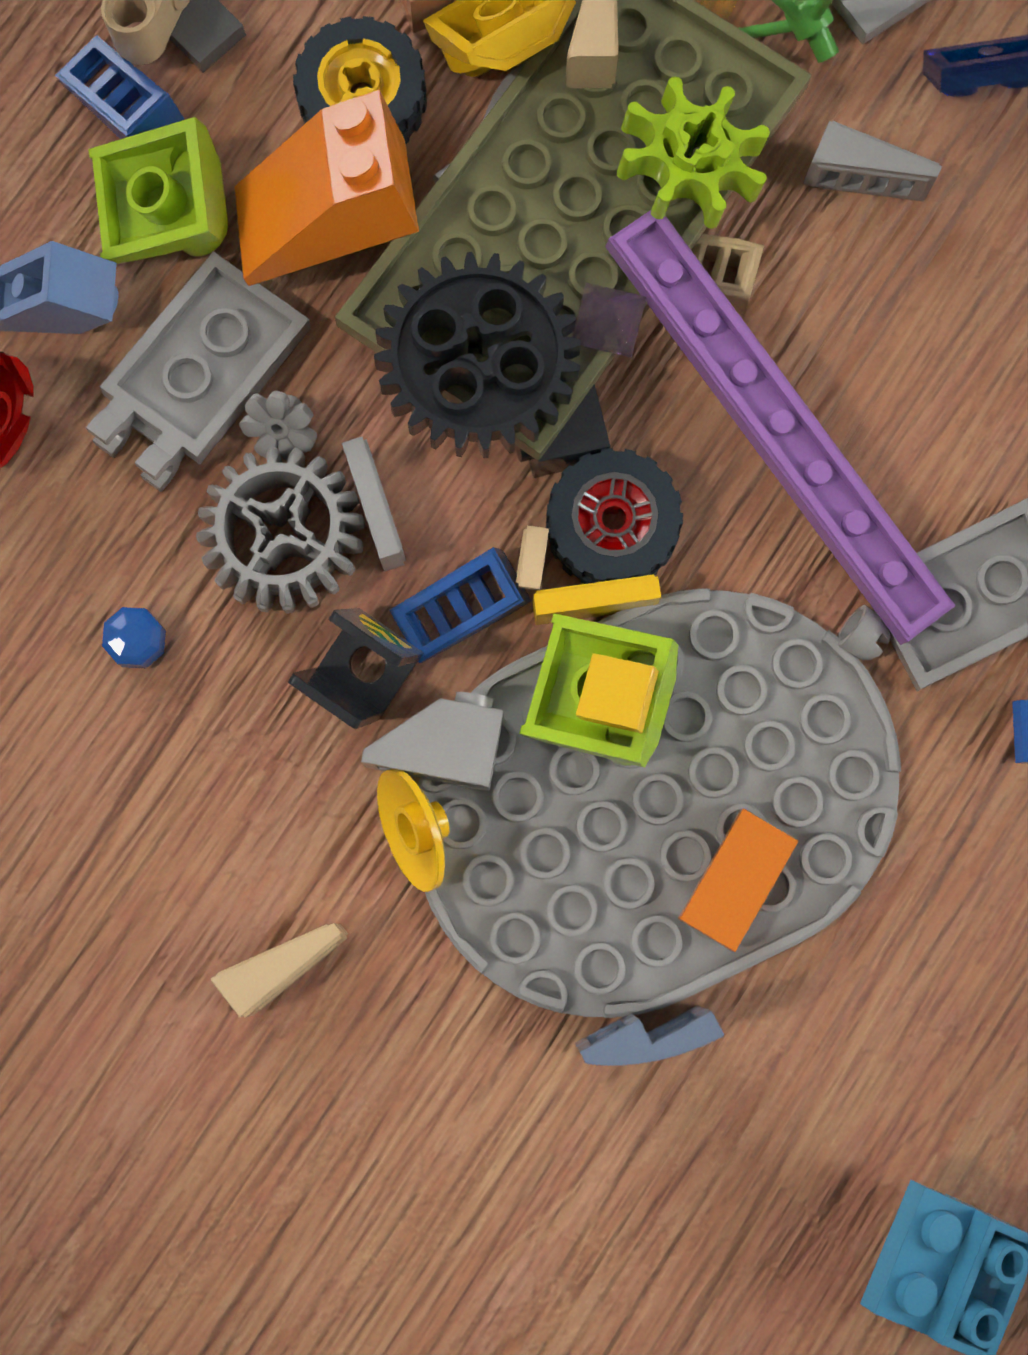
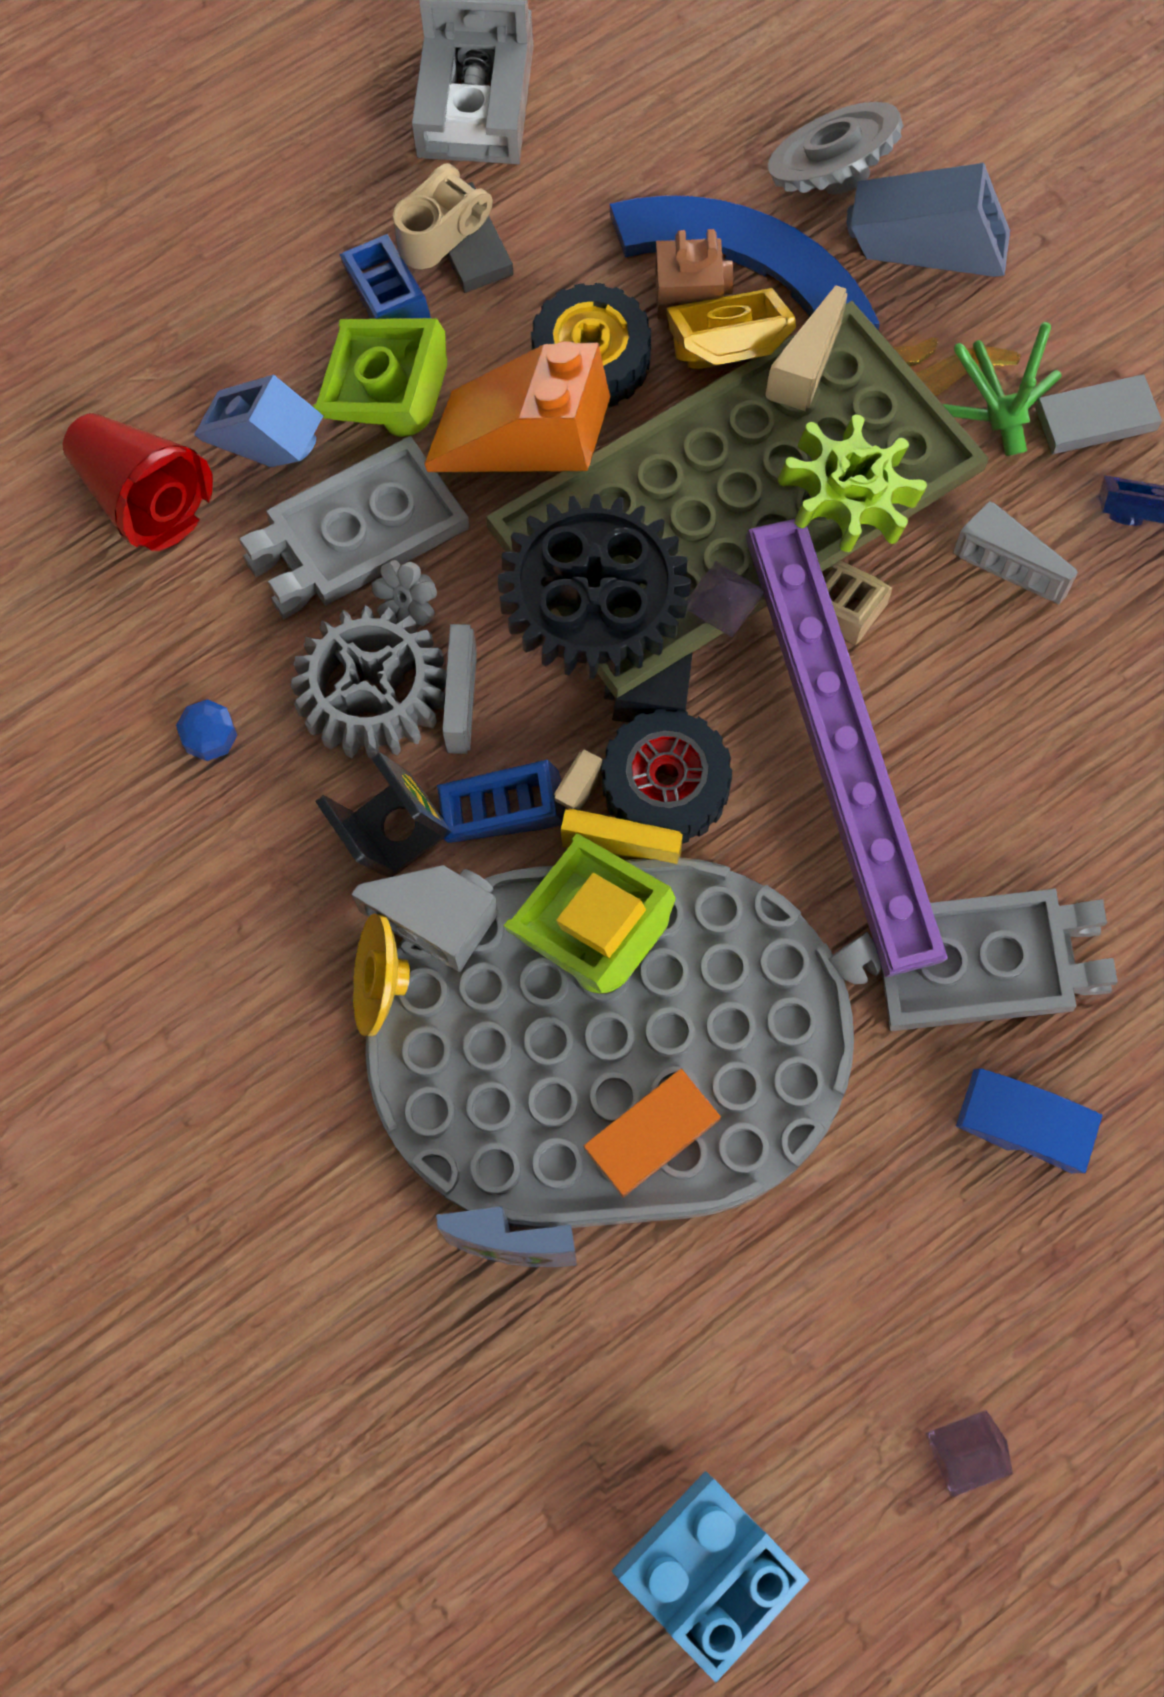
camera: 25 degrees right, 10 degrees down
(265, 976) = (200, 1058): tan slope -> none

